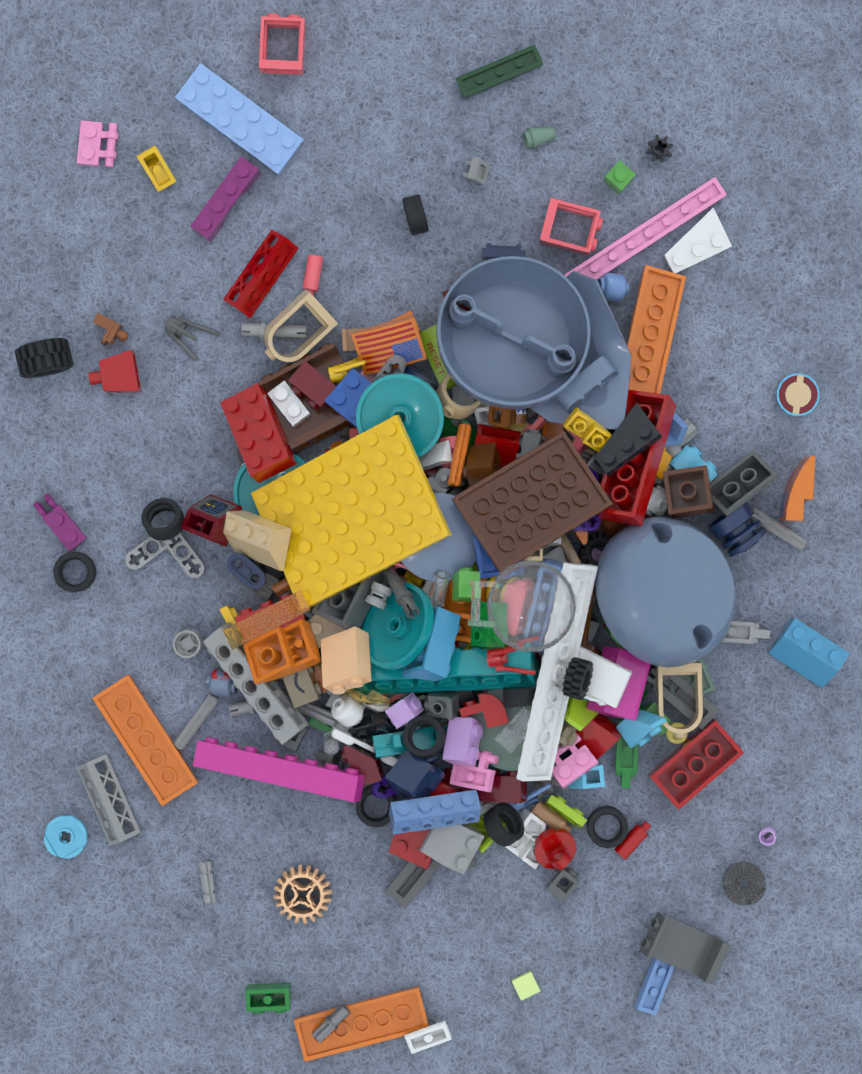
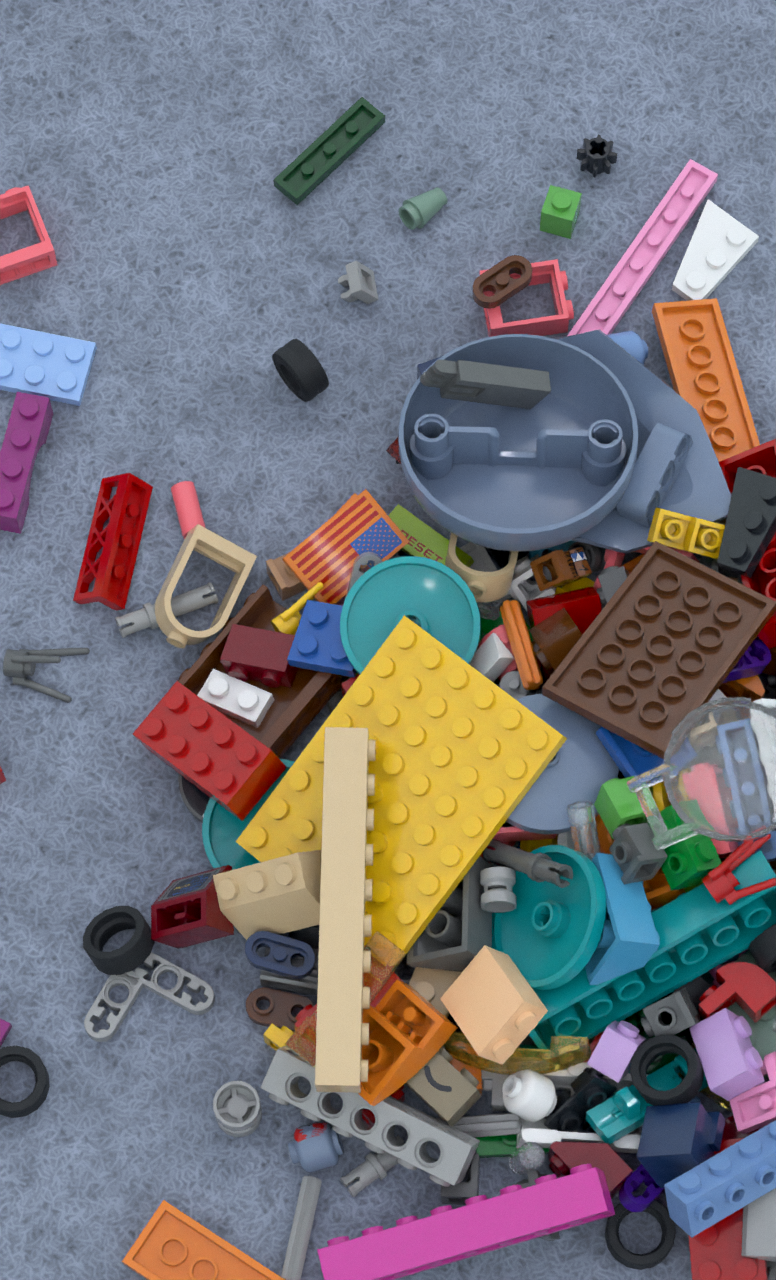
camera: 25 degrees left, 20 degrees down
(237, 595) = (279, 1010): none -> reddish brown plate
(285, 572) = (342, 910): none -> tan brick
(458, 617) = (636, 852): none -> dark grey brick
(513, 287) = (488, 383): none -> dark grey hinge
(558, 212) = (500, 283): none -> reddish brown plate

